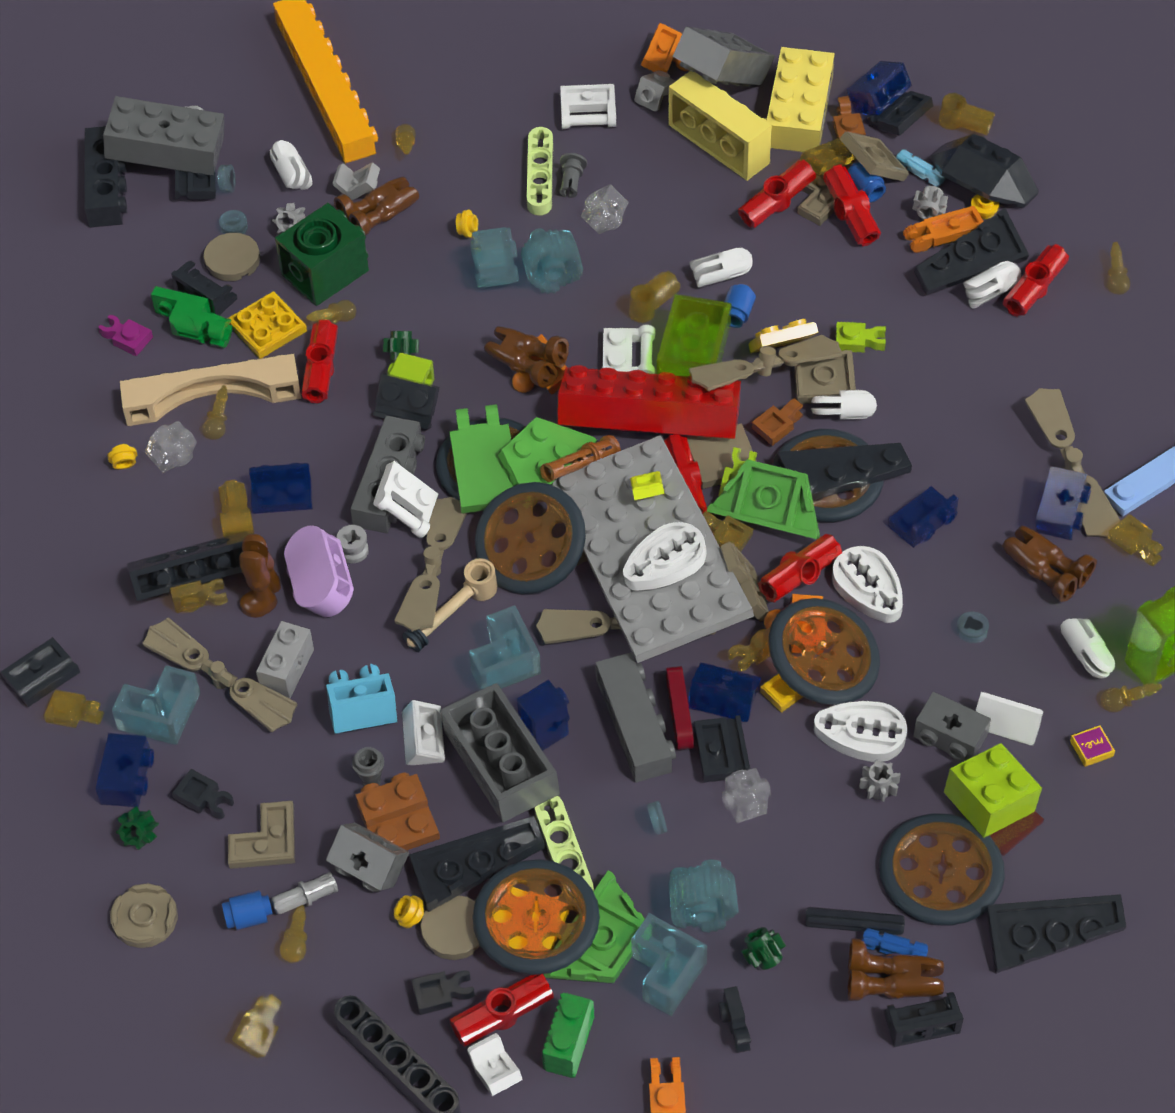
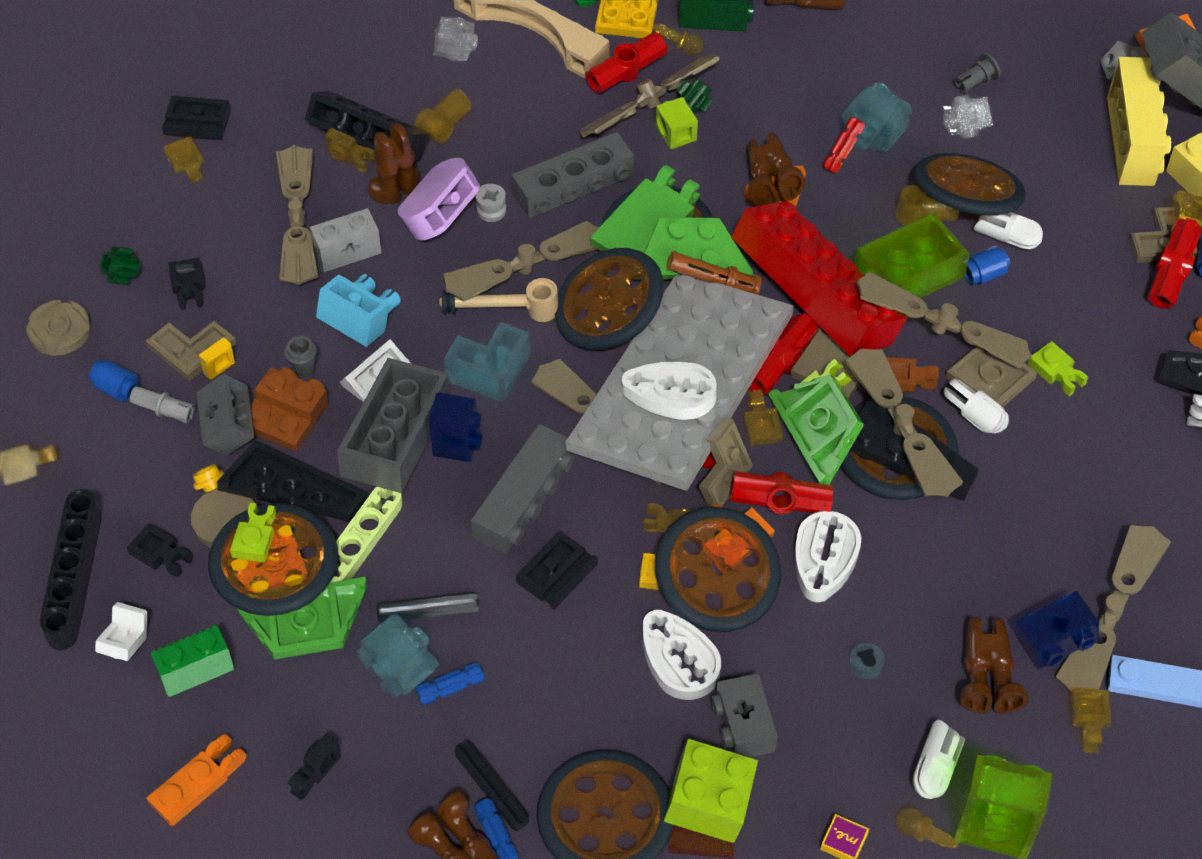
camera: 45 degrees right, 0 degrees up
(122, 456) = (420, 22): yellow plate -> none
(124, 770) = (161, 222): clear blue brick -> none
(159, 712) = (233, 203): clear light blue brick -> none
(214, 426) = (506, 51): clear yellow bar -> none
(281, 488) = (494, 127): clear blue bracket -> none
(293, 946) = (111, 432): clear yellow bar -> none
(303, 826) = (217, 358): none -> yellow tile
(361, 408) = (648, 95): none -> dark tan piece
(406, 399) = (649, 135): black plate -> none
(408, 492) = (565, 195): white plate -> none
(466, 223) = (852, 49): yellow plate -> none
(483, 1019) = (159, 595): red piece -> none
(493, 257) = (835, 83): clear light blue brick -> none
(509, 913) = (255, 537): none -> lime plate
(542, 170) = (954, 51): yellowish green beam -> none
(550, 296) = (843, 144): none -> red axle
(588, 99) = (1060, 30): white plate -> none
(618, 348) = (854, 226): white plate -> none
(647, 485) = (726, 327): neon yellow tile -> none
(657, 817) = (447, 574): clear light blue tile -> none
(665, 255) = (969, 184): none -> wedge
(669, 852) = (429, 606): none -> black axle
(673, 959) = (318, 686): clear light blue brick -> none
(679, 708) = (564, 511): dark red beam -> none
(723, 691) = (611, 530): clear blue bracket -> none
(746, 794) = (527, 617): clear brick -> none
(749, 883) = (450, 683): none -> blue axle
(763, 948) = (396, 736): dark green gear -> none
(777, 193) = (1123, 208): red piece -> none
(791, 333) = (975, 308): tile -> none
(876, 464) = (929, 465): none -> dark tan piece
(879, 780) = (639, 692): light grey gear -> none
(924, 516) = (934, 543): clear blue bracket -> none
(1010, 718) = (800, 753): white slope -> none

